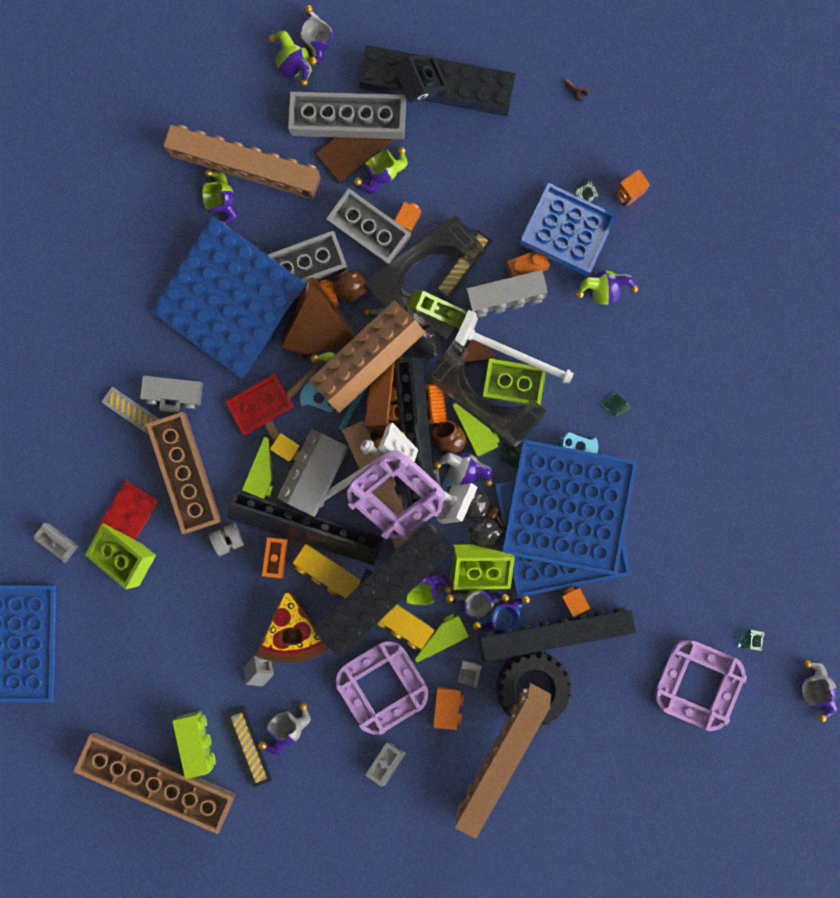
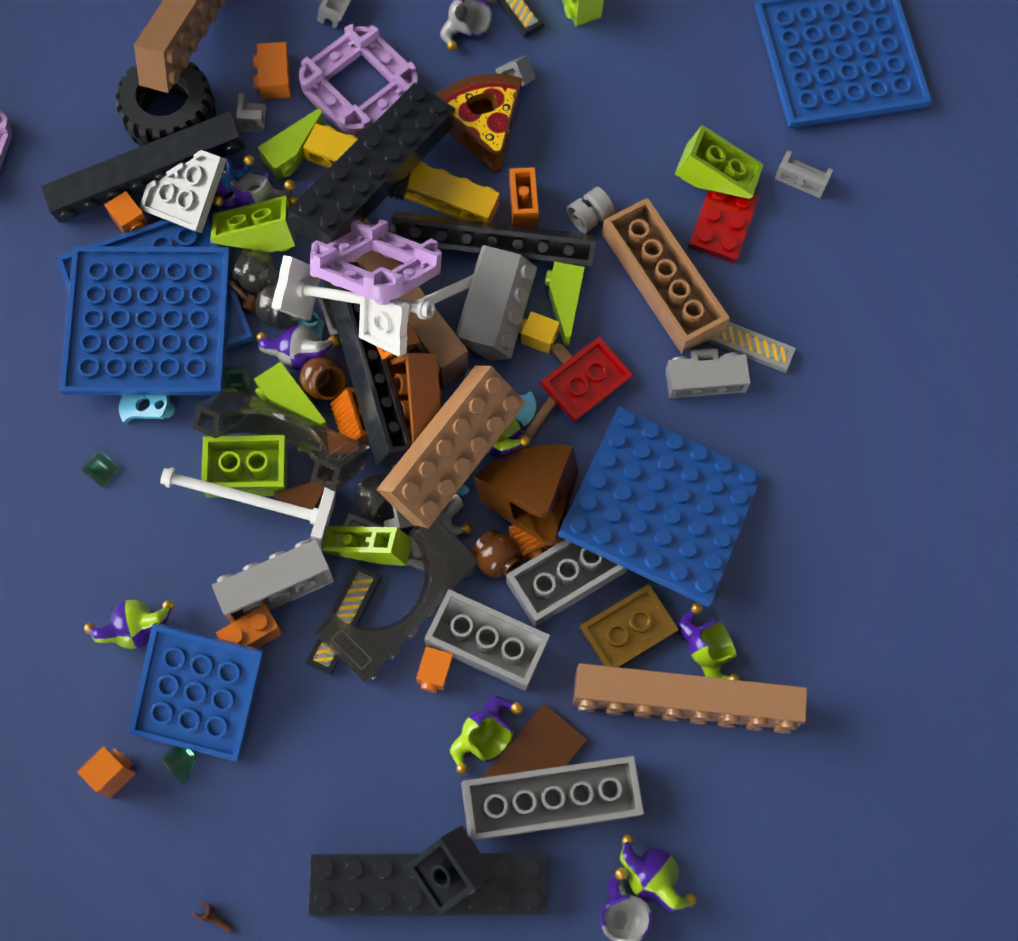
camera: 170 degrees right, 15 degrees down
(271, 220) = (628, 628): none -> pearl gold plate
(528, 602) = (185, 191): none -> plate

